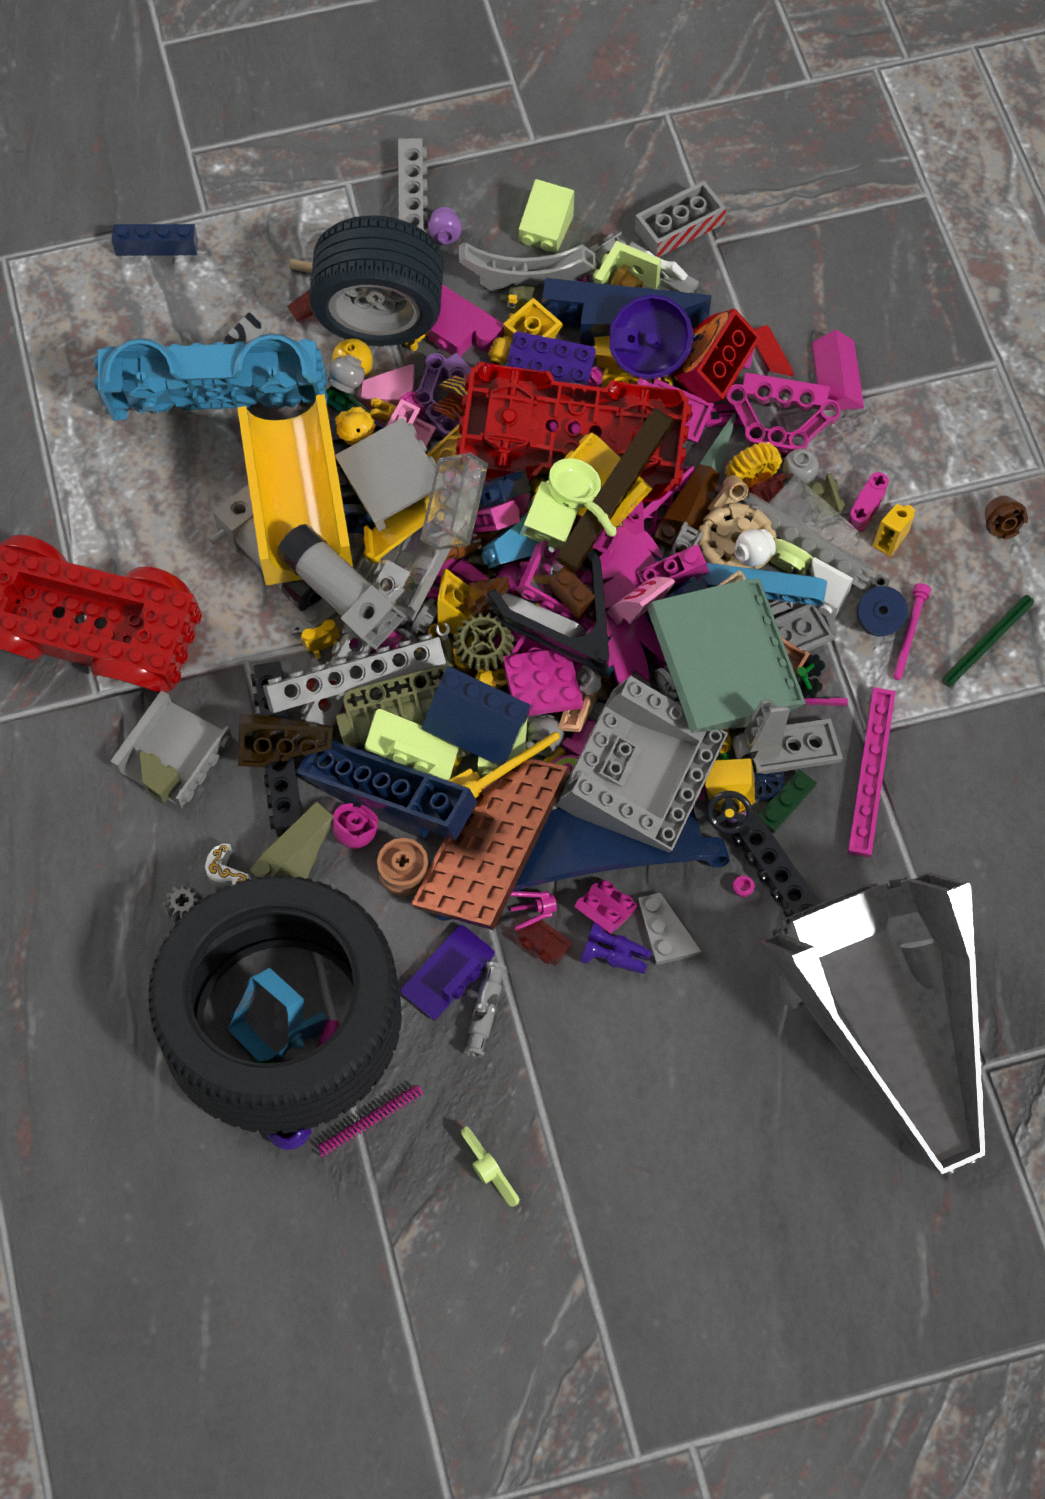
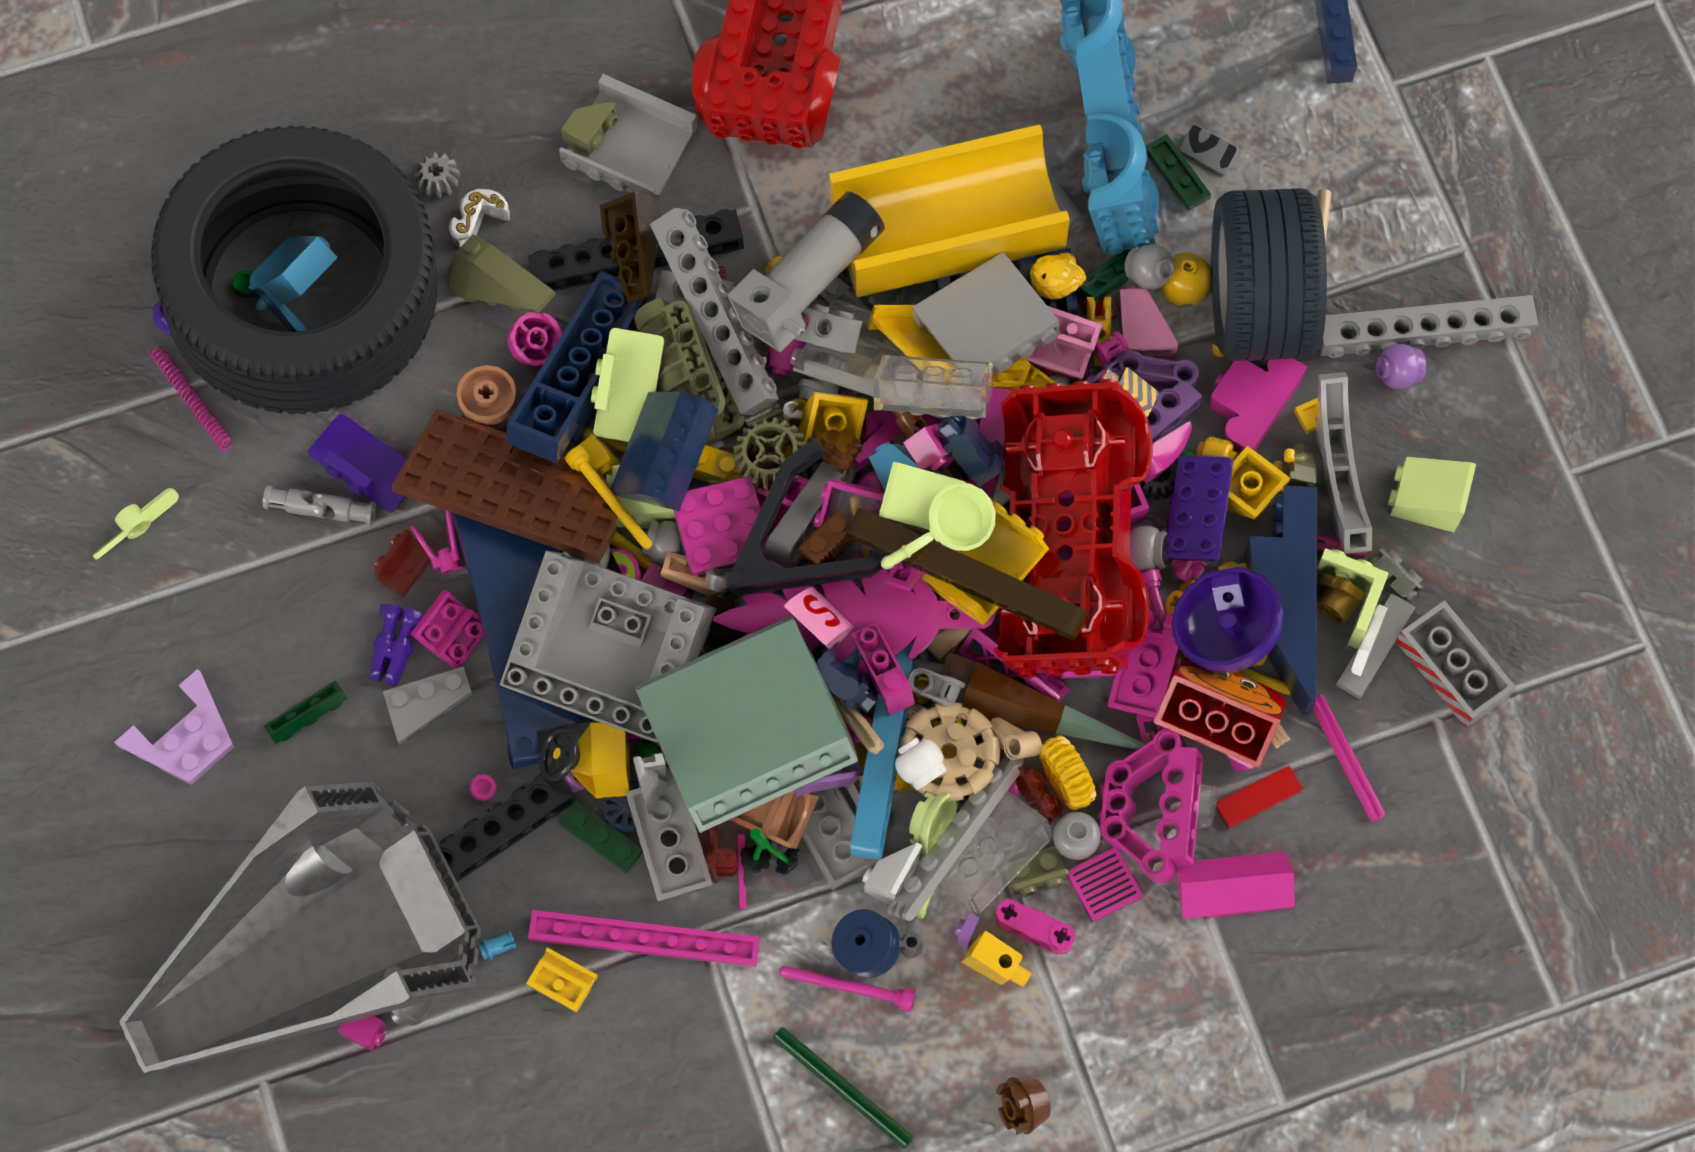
camera: 85 degrees right, 5 degrees up
(473, 290) = (1307, 415): none -> yellow tile
(672, 1024) = (305, 712): none -> dark green plate
(693, 1122) = (192, 743): none -> lavender wing
(750, 294) = (1347, 759): none -> dark pink axle
(814, 709) = (721, 861): none -> clear red hinge
(836, 456) = (1104, 884): none -> dark pink tile
(870, 546) = (966, 930): none -> medium lavender plate
(873, 875) = (496, 945): none -> dark azure pin
(904, 832) = (562, 980): none -> yellow plate

